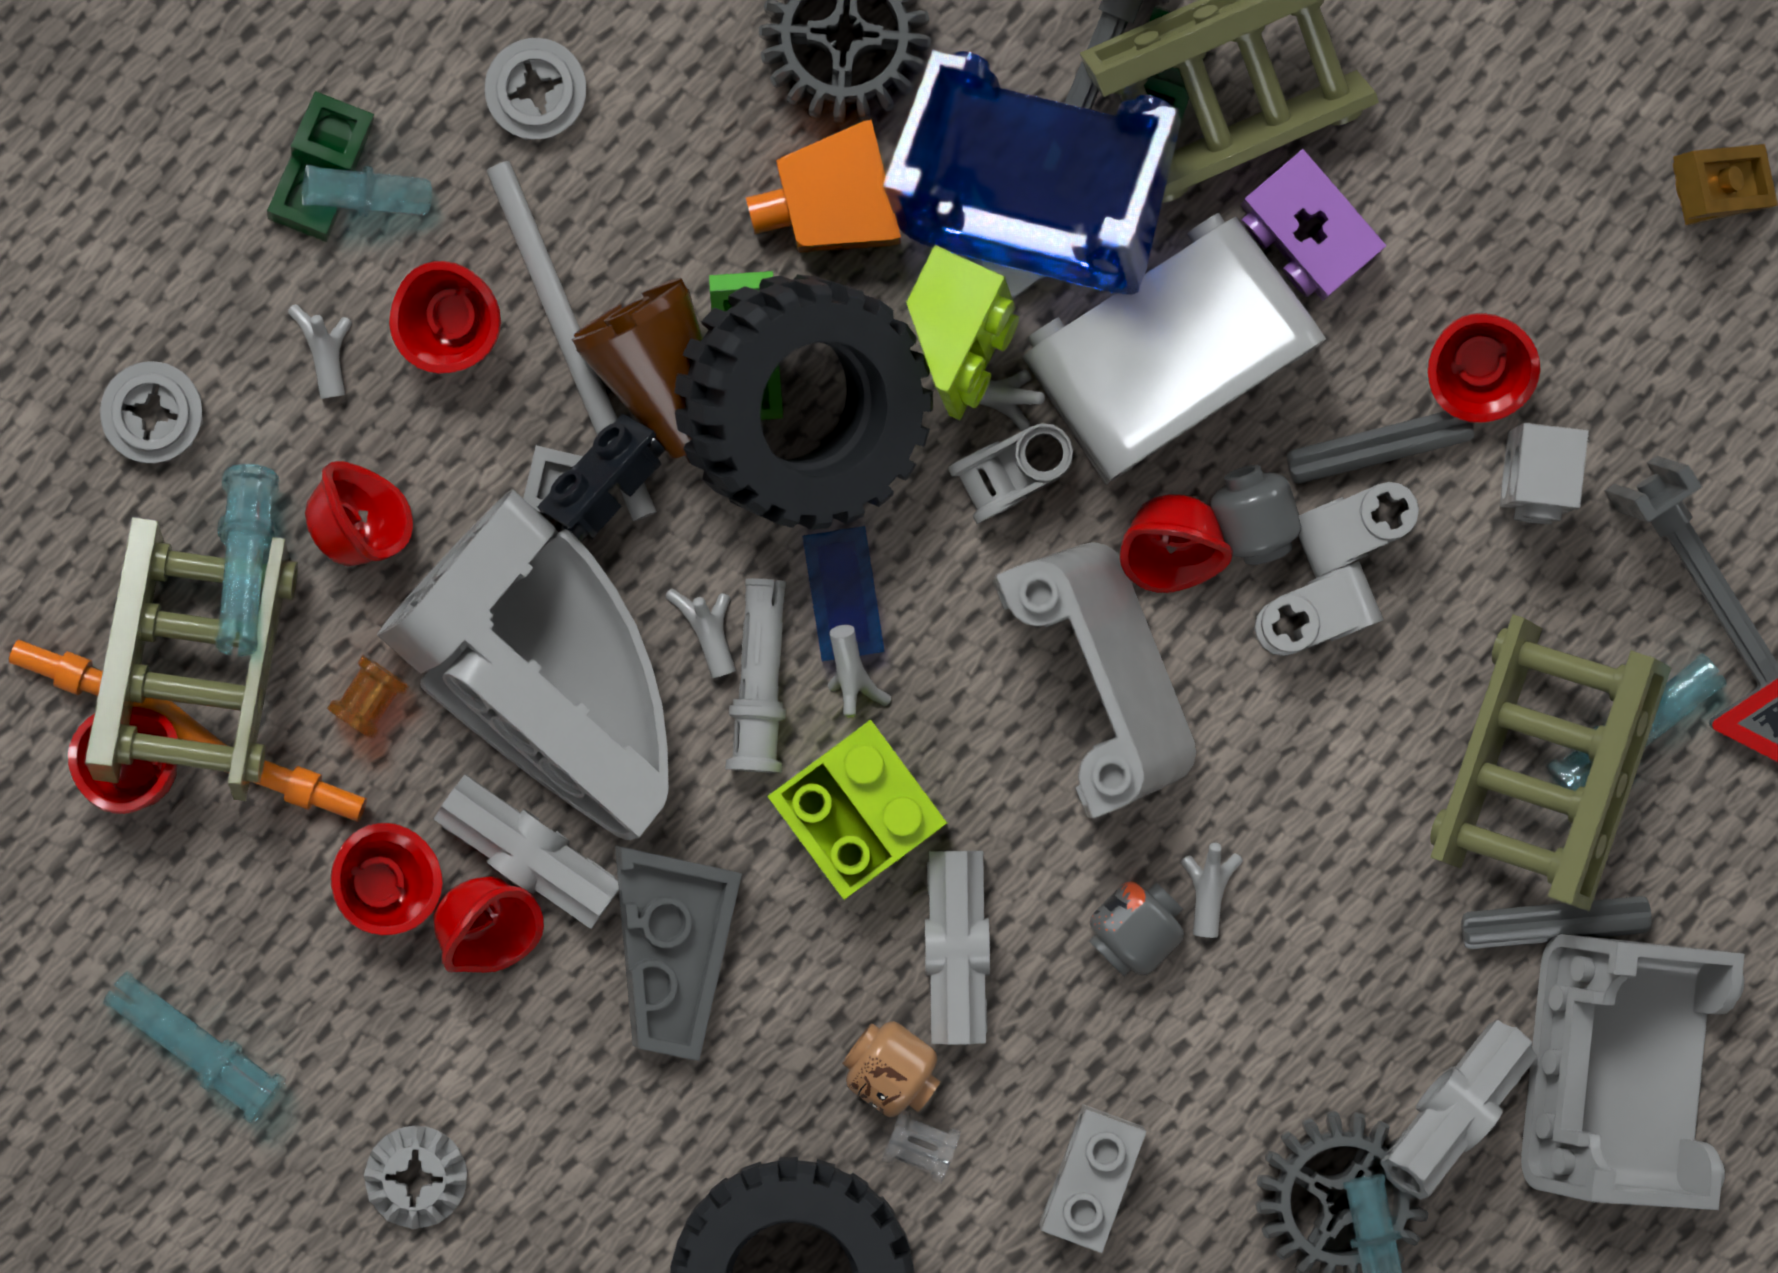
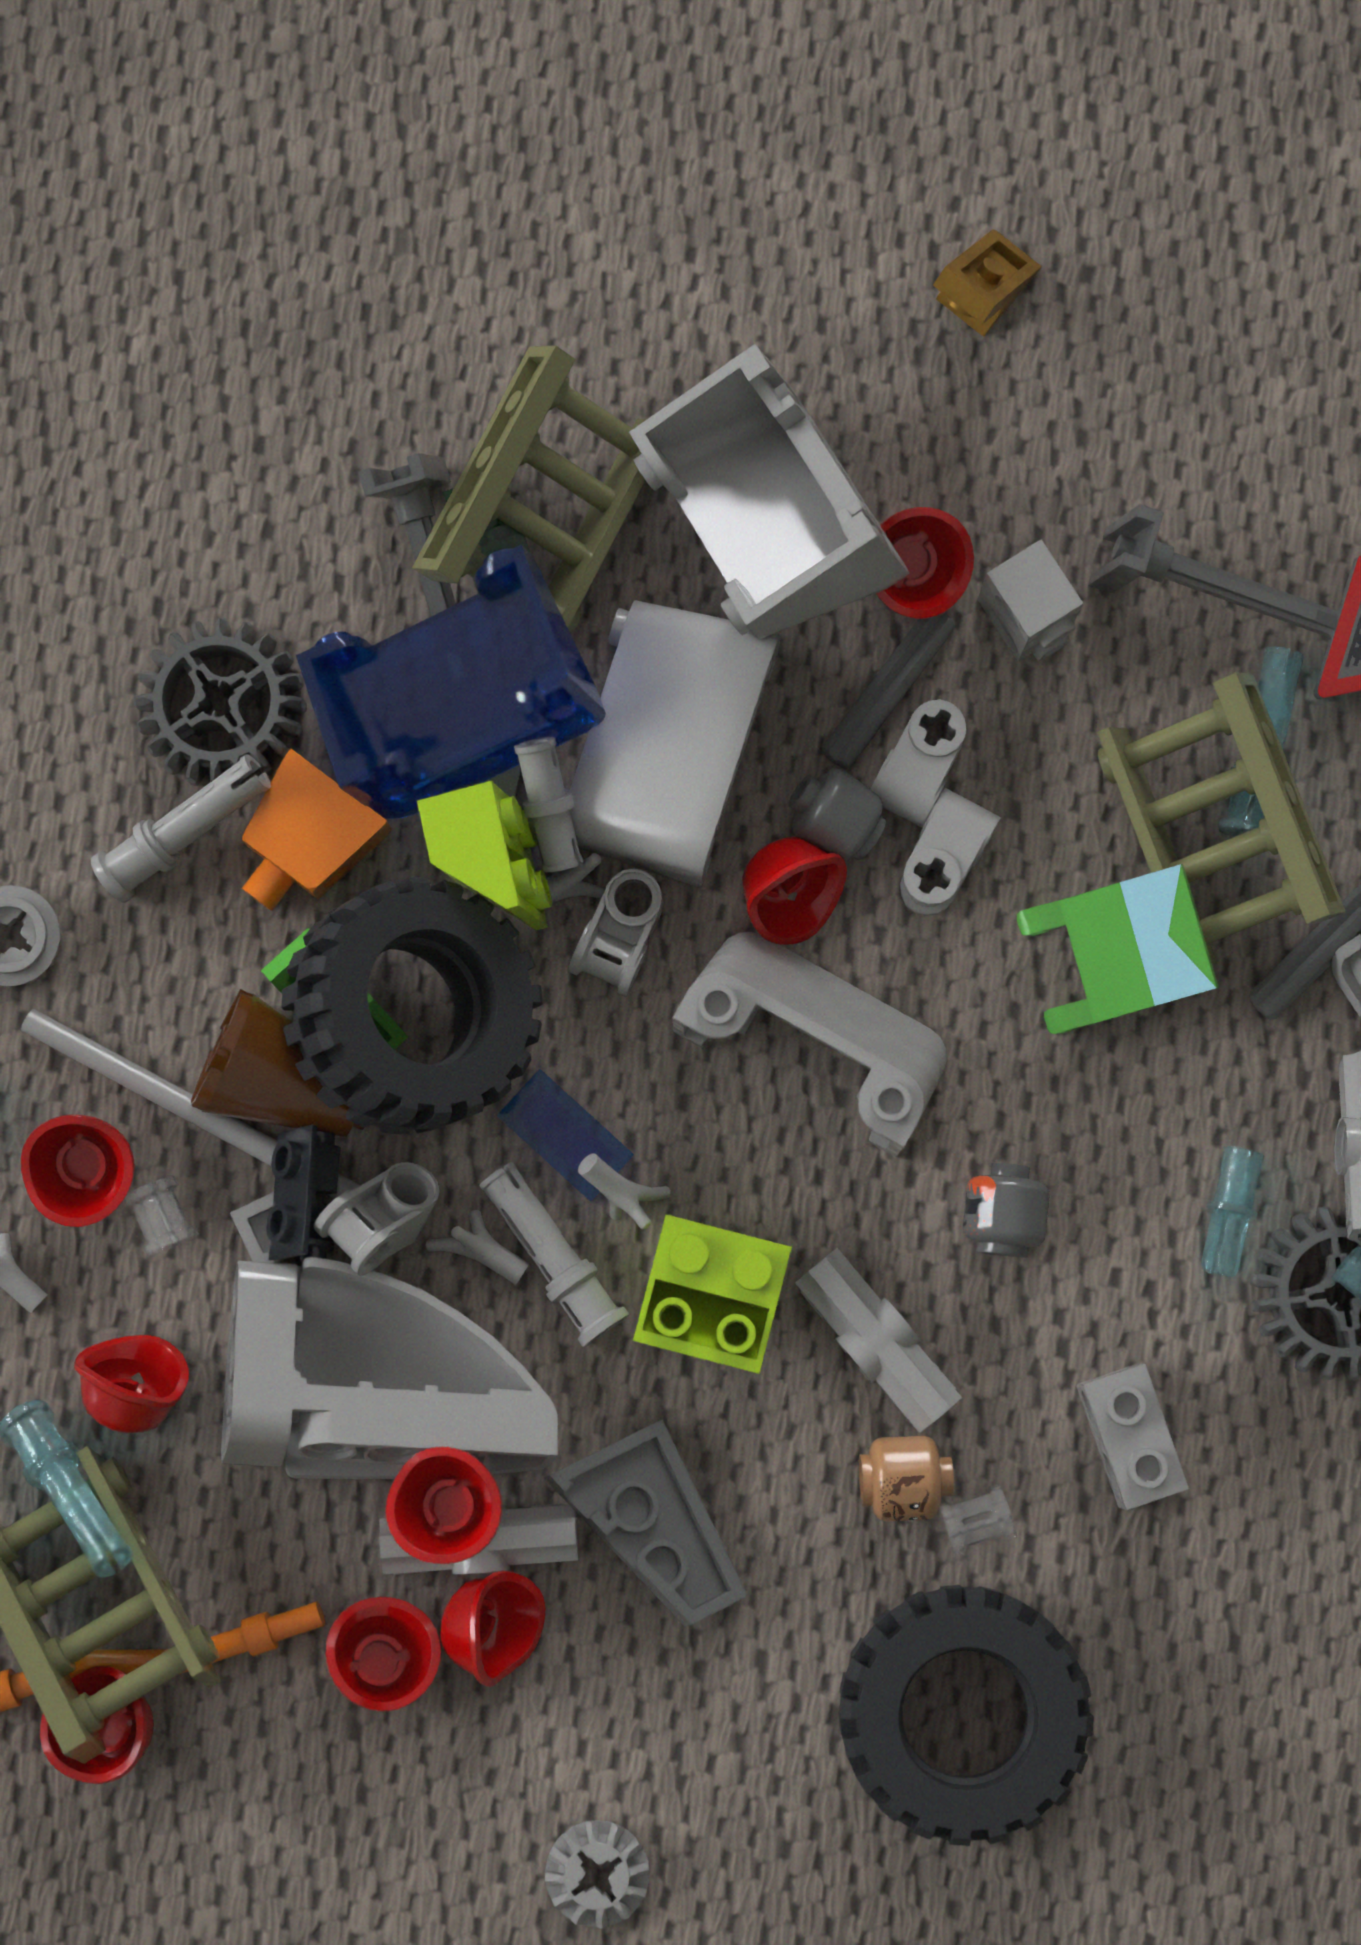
camera: 30 degrees left, 5 degrees down
(218, 1064) = (368, 1912): clear light blue pin -> none
(368, 697) = (254, 1519): clear orange bush -> none
(480, 404) = (160, 1216): none -> clear bush
(521, 806) = (443, 1506): none -> red helmet
(650, 542) = (380, 1215): none -> light grey piece
(708, 110) = (158, 843): none -> light grey pin
(1036, 327) = (548, 804): none -> light grey pin
(1210, 888) = (1037, 1134): light grey bar -> none
(1307, 192) = (661, 560): medium lavender brick -> none
(1311, 1069) = (1231, 1211): none -> clear light blue axle
(1402, 224) = (766, 498): none -> light grey windscreen
(1403, 802) = (1131, 944): none -> bright green flag

